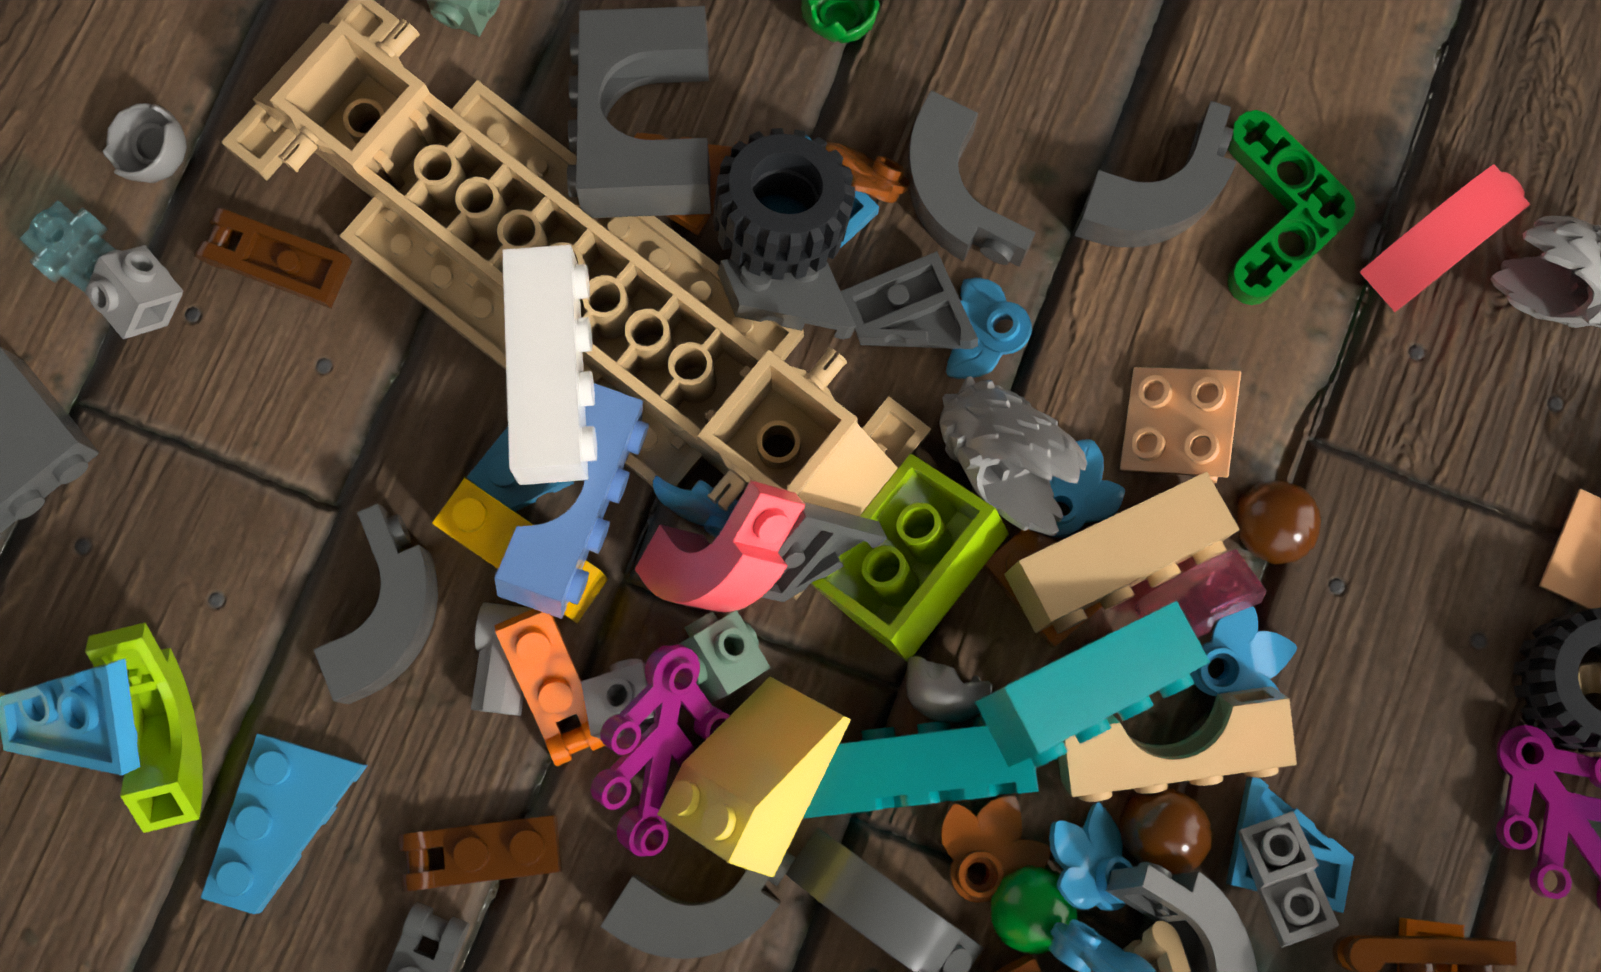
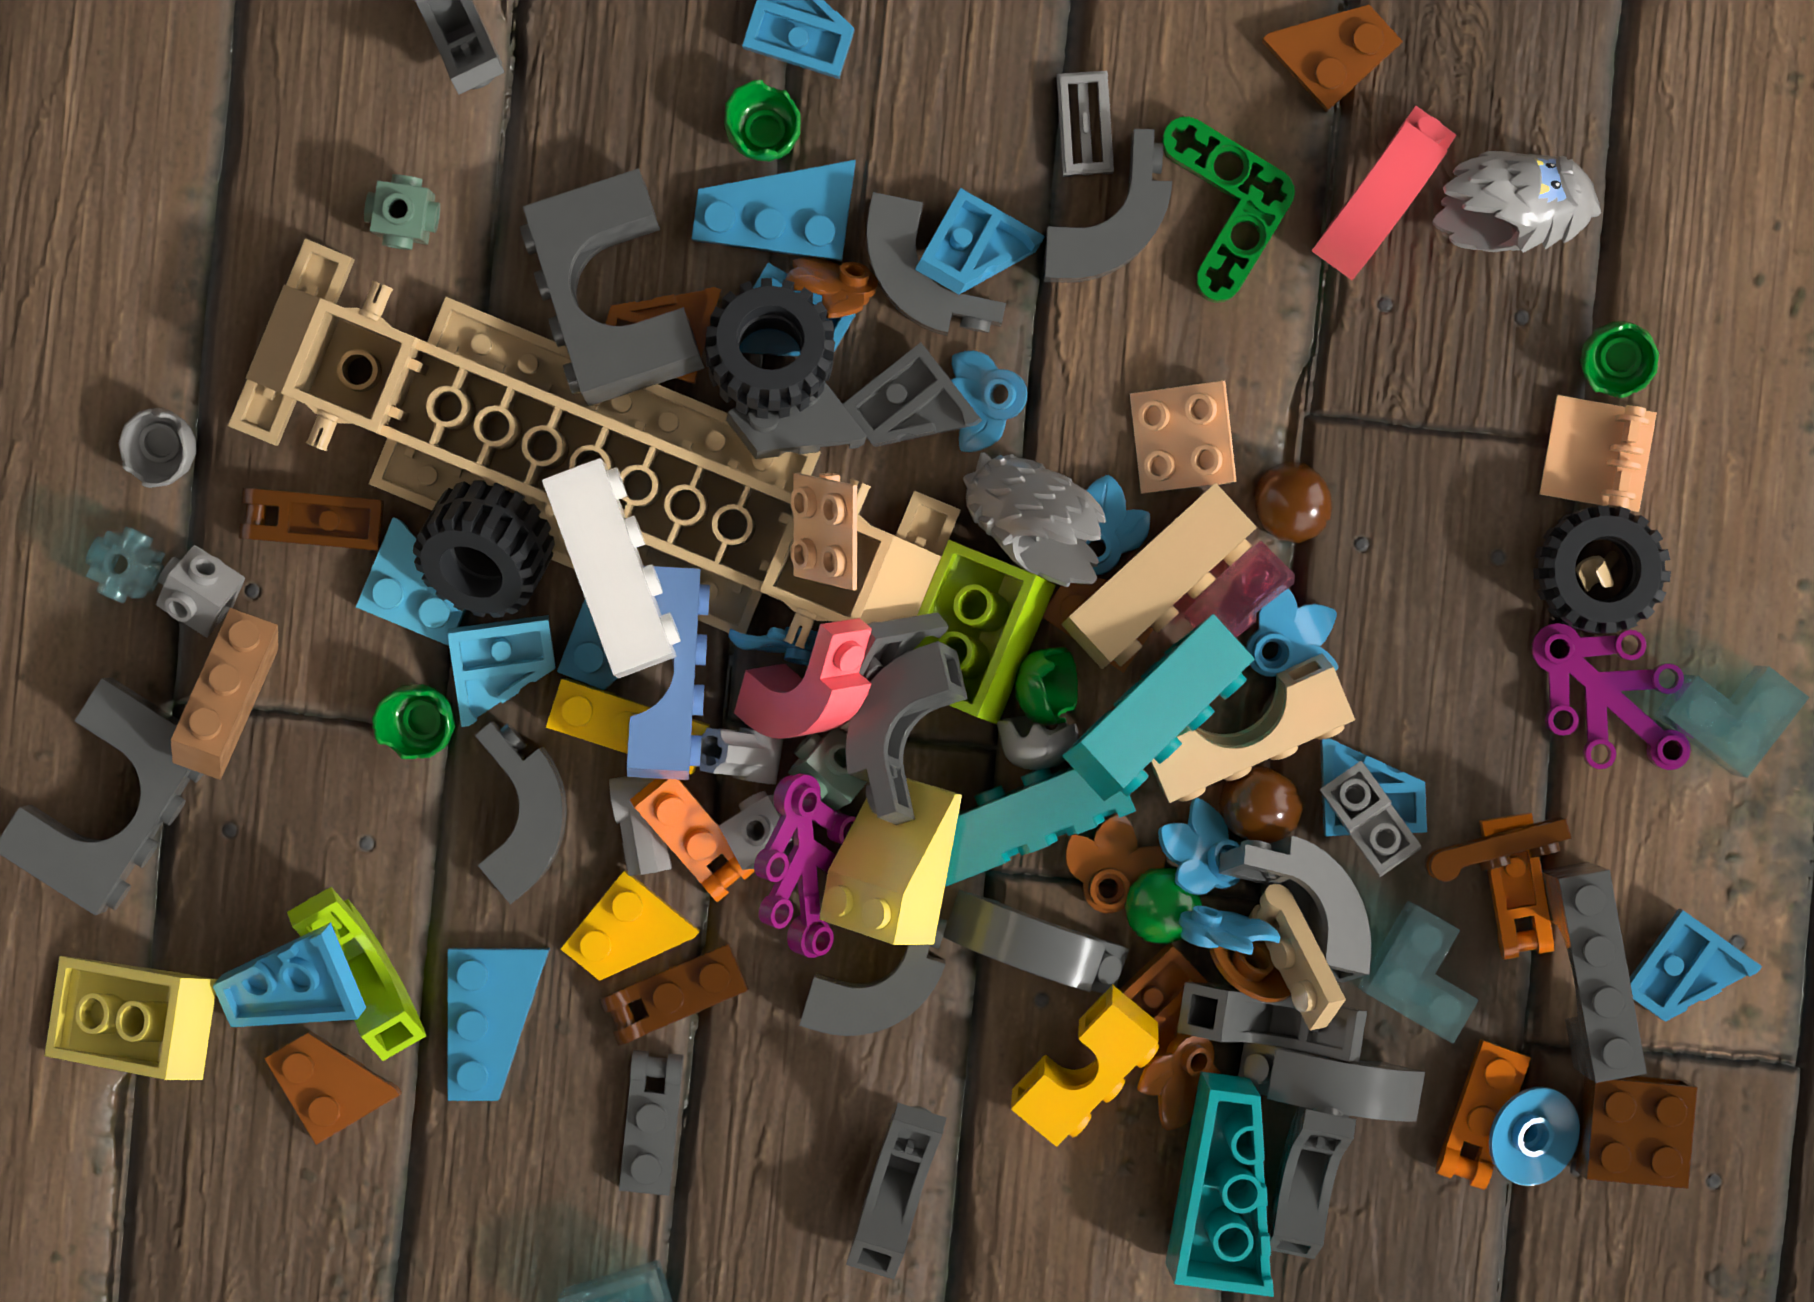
camera: 15 degrees left, 10 degrees up
(81, 843) = (327, 1086): none -> dark orange wing
(112, 395) = (224, 694): none -> medium nougat brick
(301, 483) = (414, 721): none -> green hair
(351, 354) = (400, 595): none -> medium azure wing
(408, 450) = (497, 661): none -> medium azure wing
(428, 322) = (483, 548): none -> black tyre
(452, 767) = (626, 929): none -> yellow wing
(630, 612) = (741, 754): none -> light grey piece
(785, 381) = (825, 529): none -> light nougat hinge
(805, 600) = (894, 705): none -> dark grey arch
(831, 96) = (780, 213): none -> dark azure wing
(972, 634) = (1047, 685): none -> green hair
(1018, 172) = (975, 244): none -> dark azure wing
(1148, 135) = (1087, 166): none -> light grey tile
(1422, 94) = (1333, 51): none -> dark orange wing

